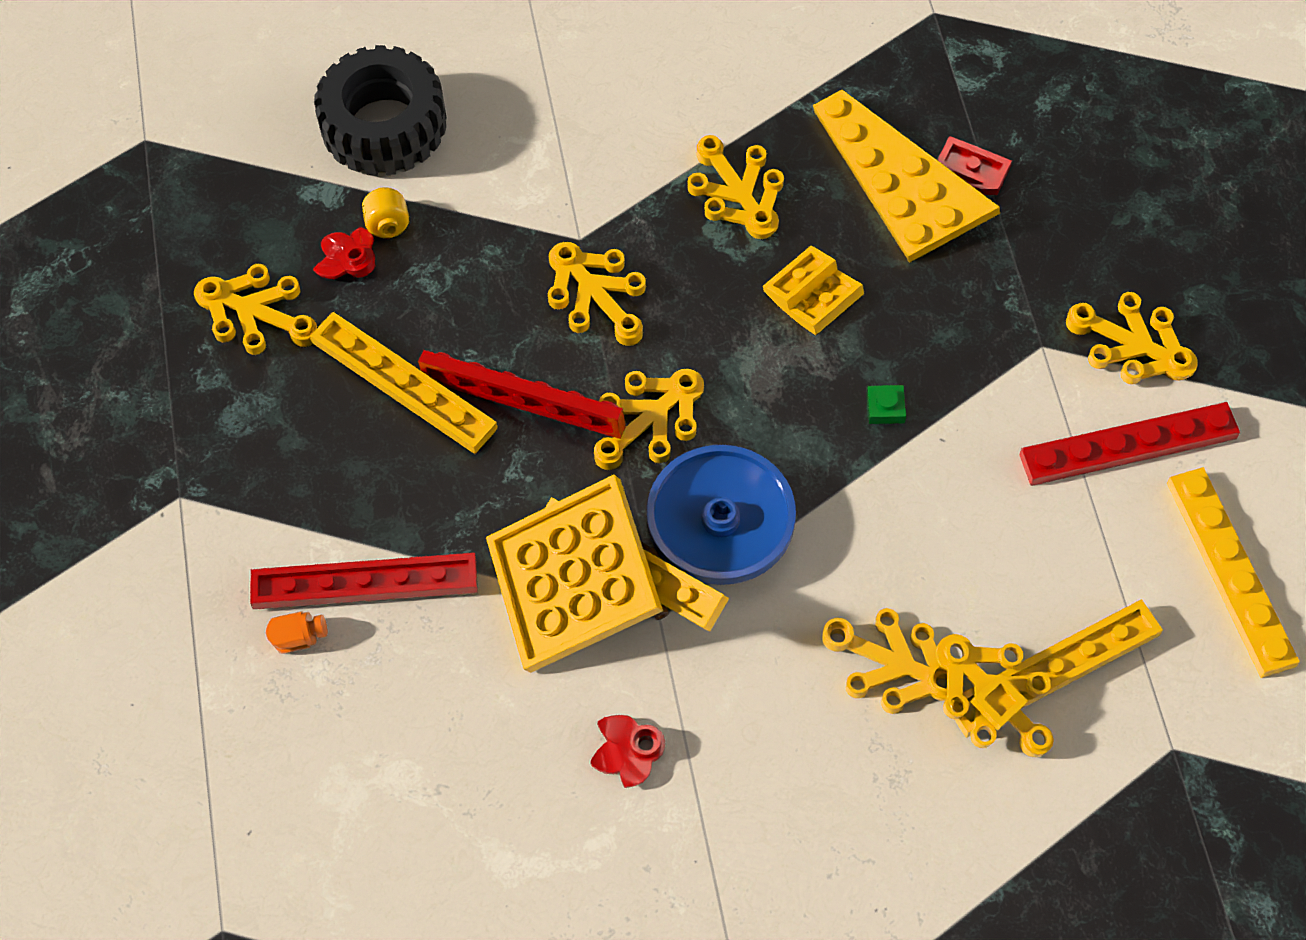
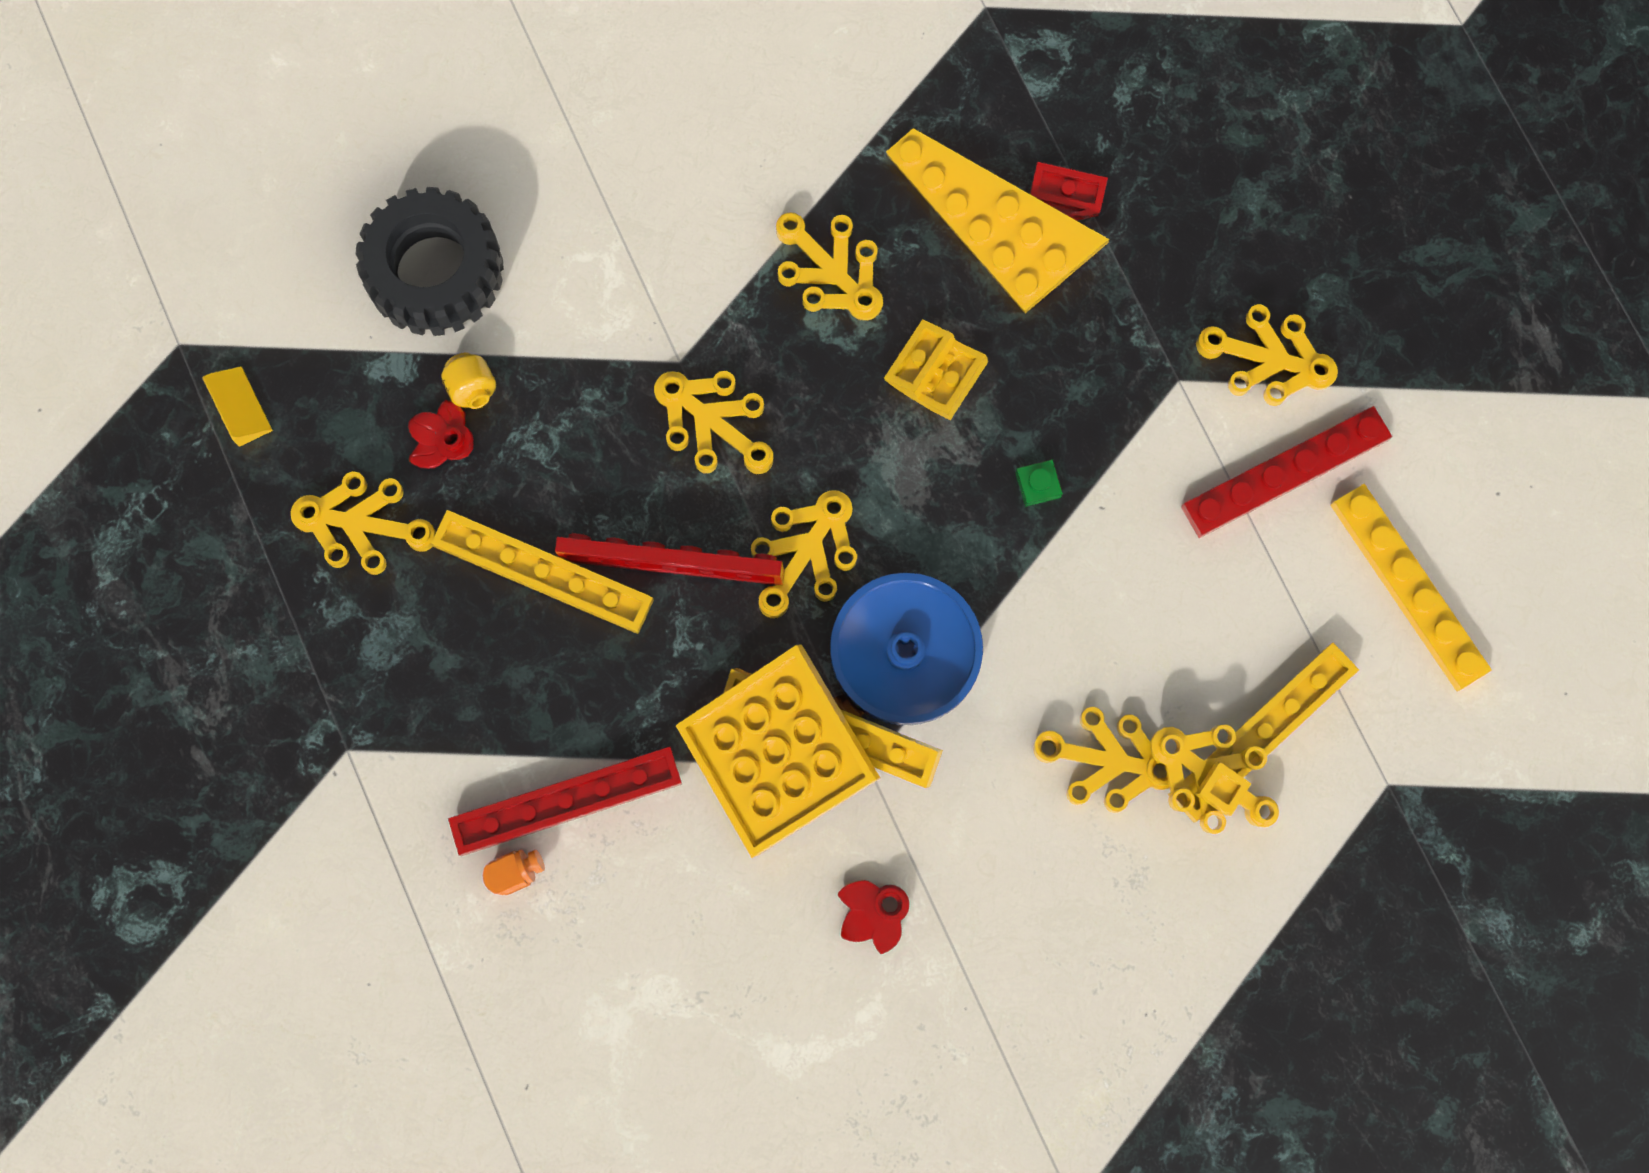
camera: 20 degrees left, 15 degrees up
(178, 194) = (237, 405): none -> yellow slope

